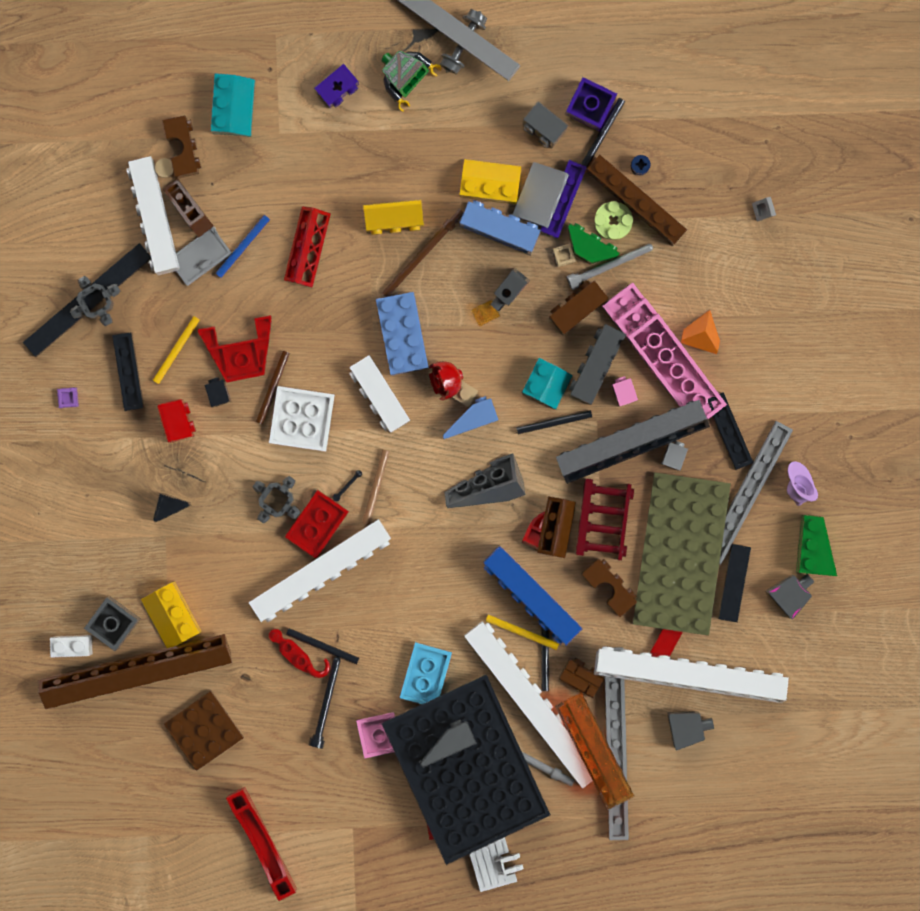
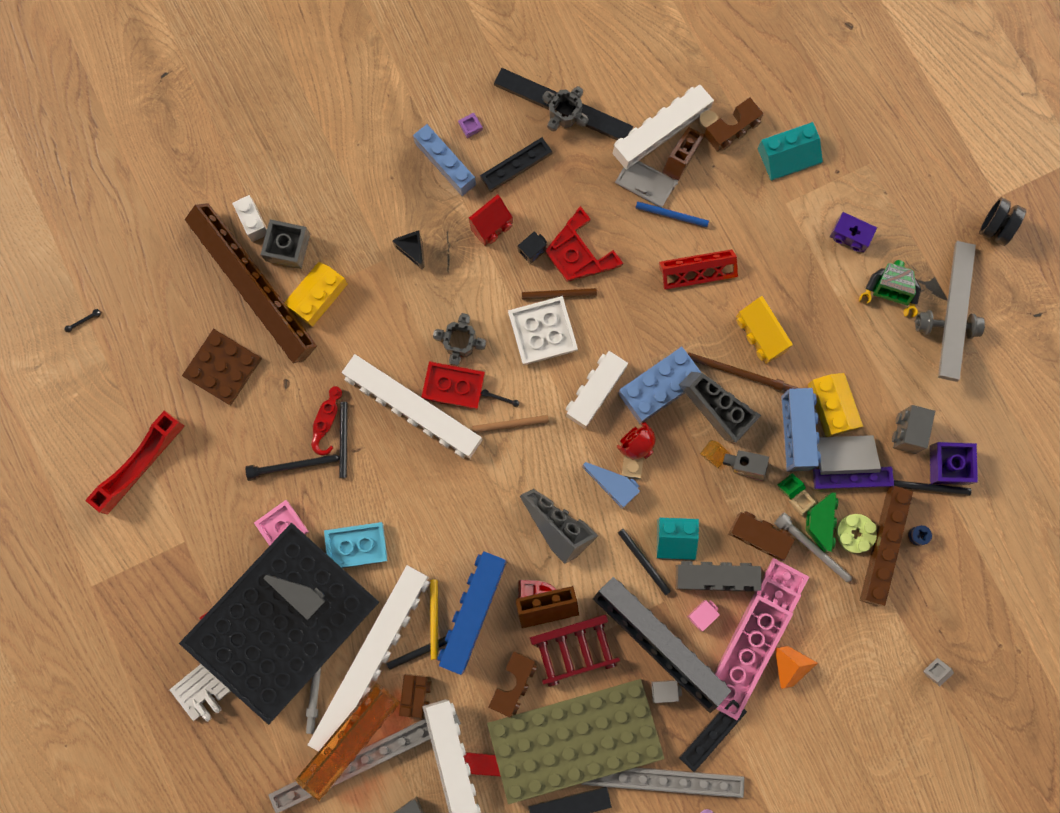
camera: 70 degrees right, 10 degrees down
(94, 438) = (444, 160): none -> medium blue brick
(98, 827) = (68, 328): none -> black hinge
(176, 349) = (554, 197): yellow bar -> none
(450, 290) = (721, 408): none -> dark grey wedge
(546, 258) = (791, 486): none -> green plate

